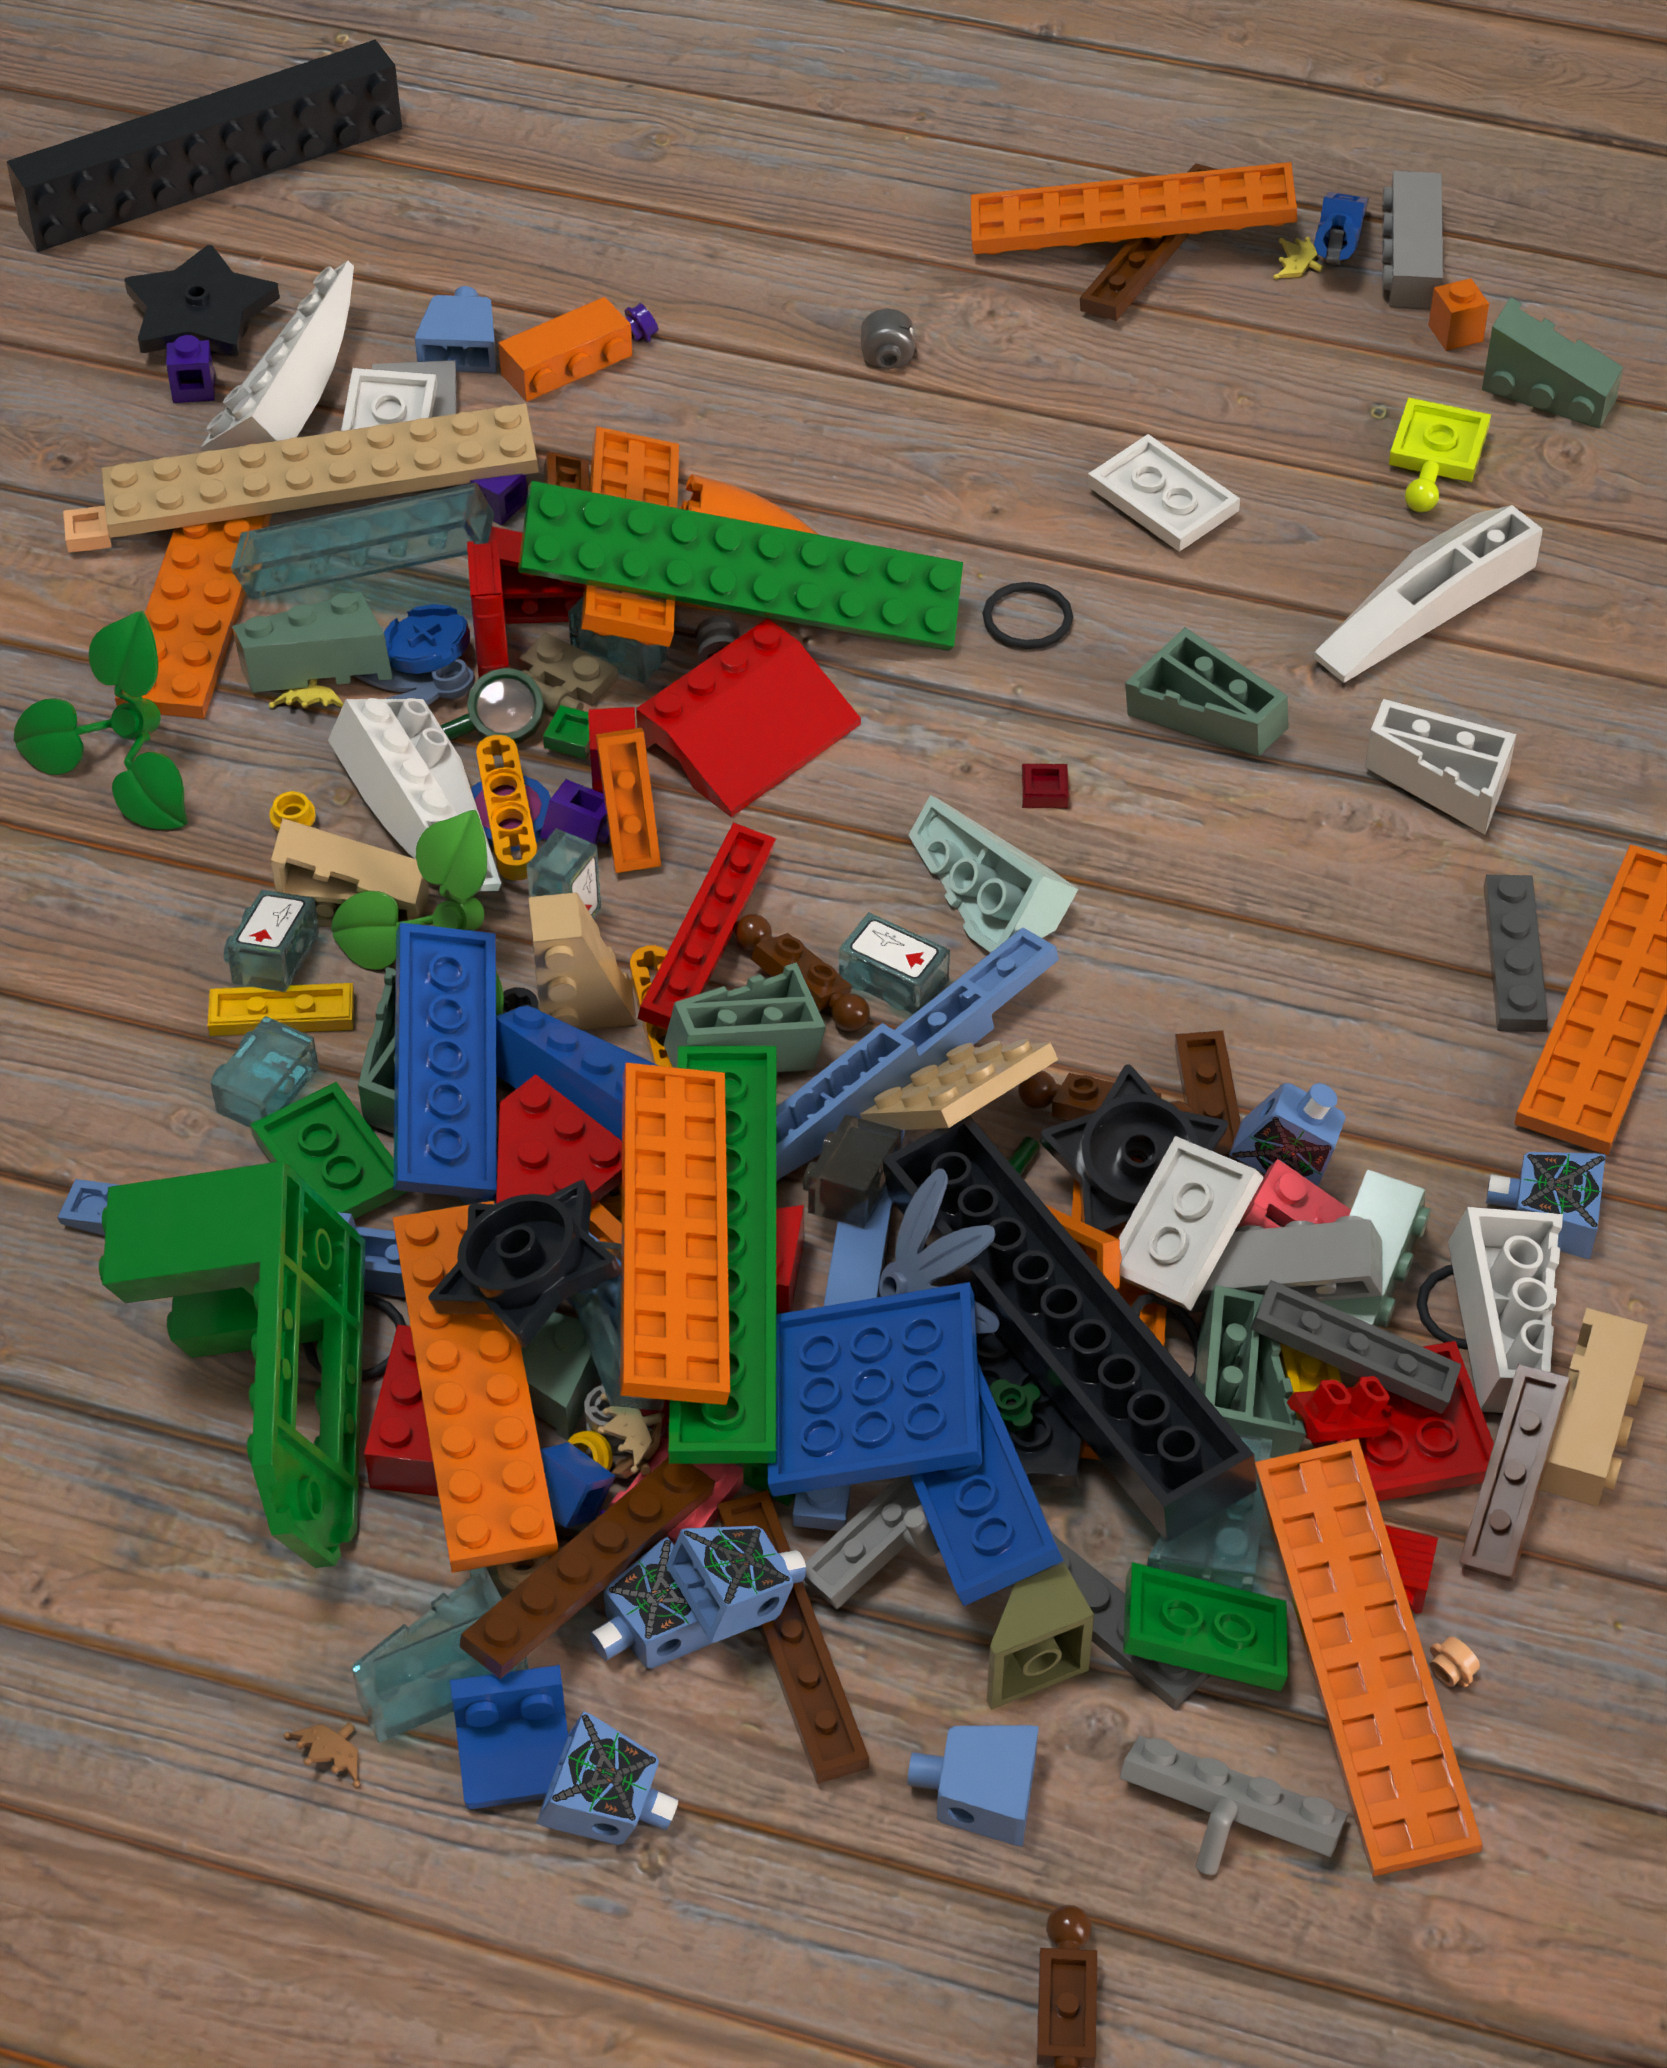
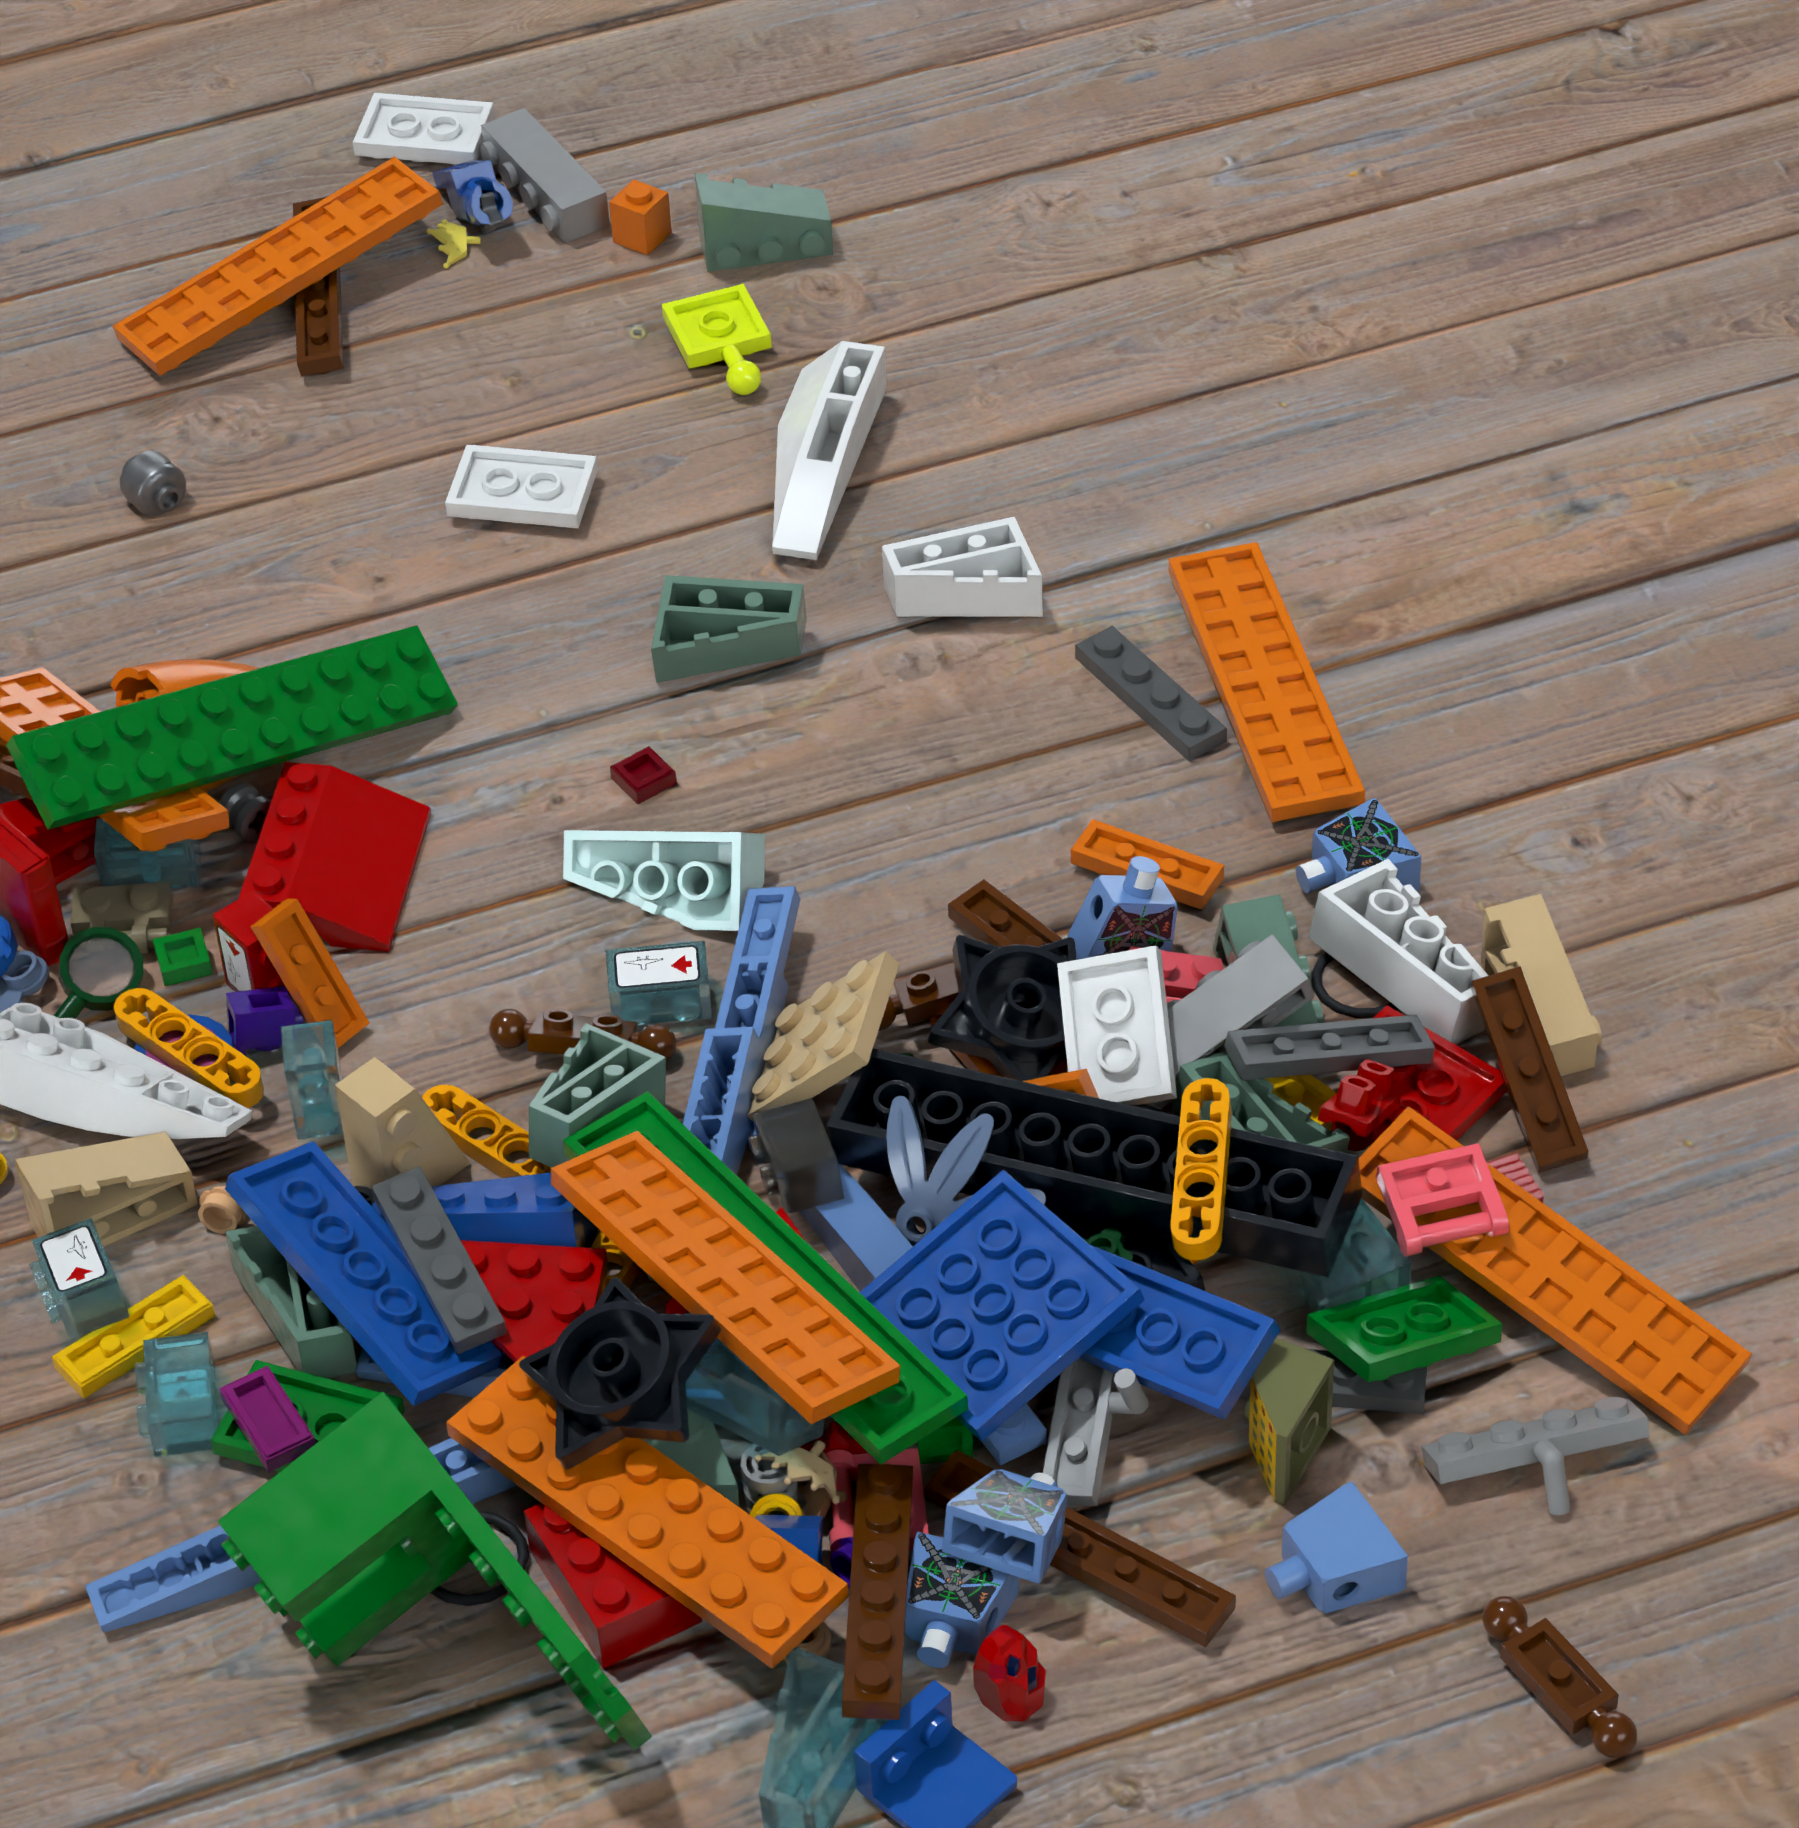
camera: 35 degrees left, 5 degrees down
(300, 1129) = (267, 1418): none -> magenta tile
(447, 855) = (217, 1095): bright green plant -> none
(503, 1085) = (439, 1260): none -> dark grey plate
(604, 1785) = (1044, 1754): torso -> none
(640, 1699) = (1009, 1675): none -> red rock
(708, 923) = (471, 1044): red plate -> none
(1033, 643) = (494, 619): black piece -> none
(1125, 1386) = (1201, 1168): none -> light orange beam
(1318, 1521) = (1437, 1184): none -> coral plate
(1354, 151) = (422, 128): none -> white plate
(1372, 1098) = (1110, 850): none -> orange plate
(1453, 1662) = (1608, 1234): light nougat plate -> none

